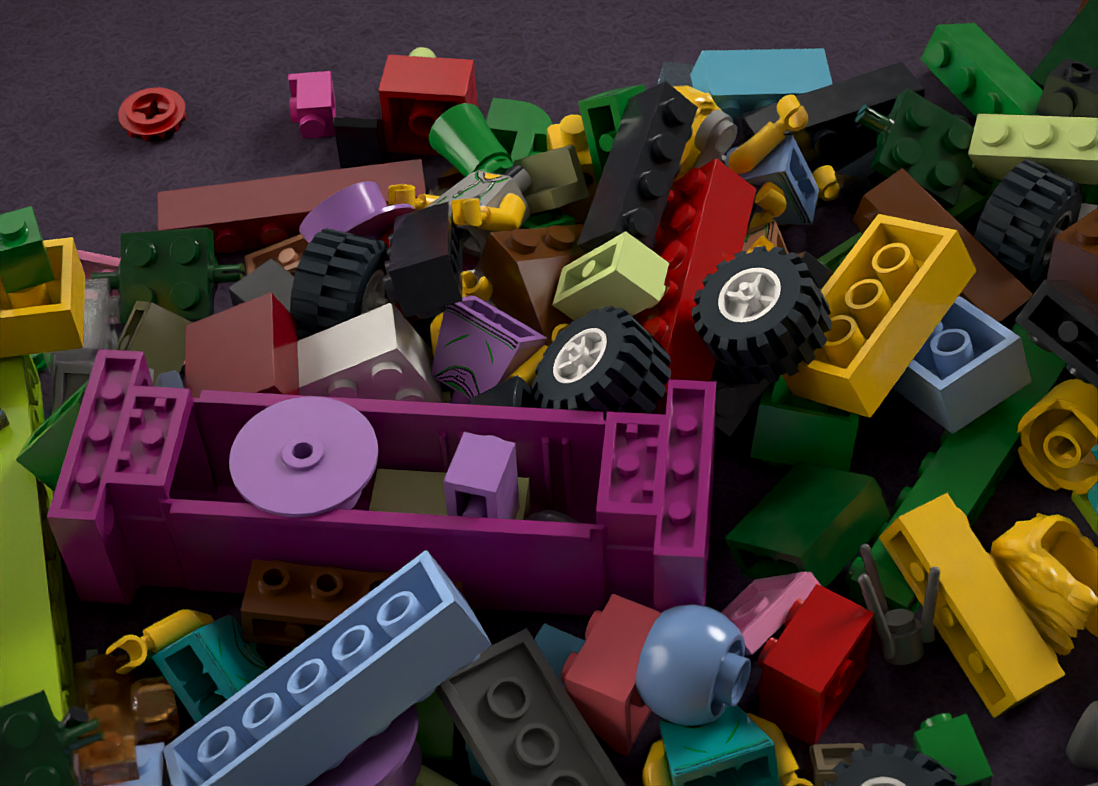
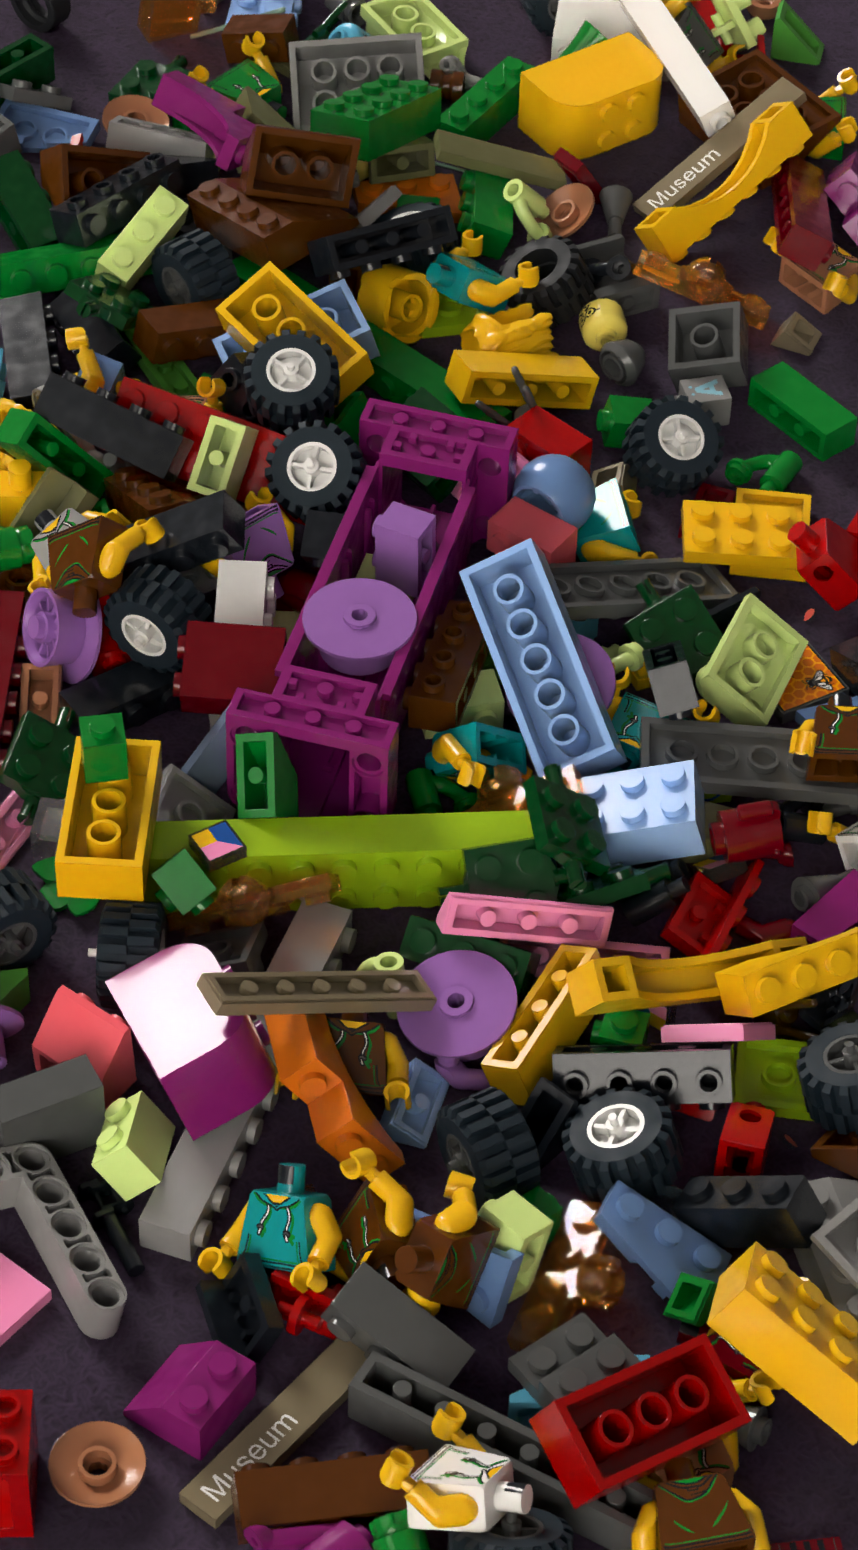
camera: 85 degrees left, 5 degrees down
(374, 192) = (91, 559): none -> reddish brown torso

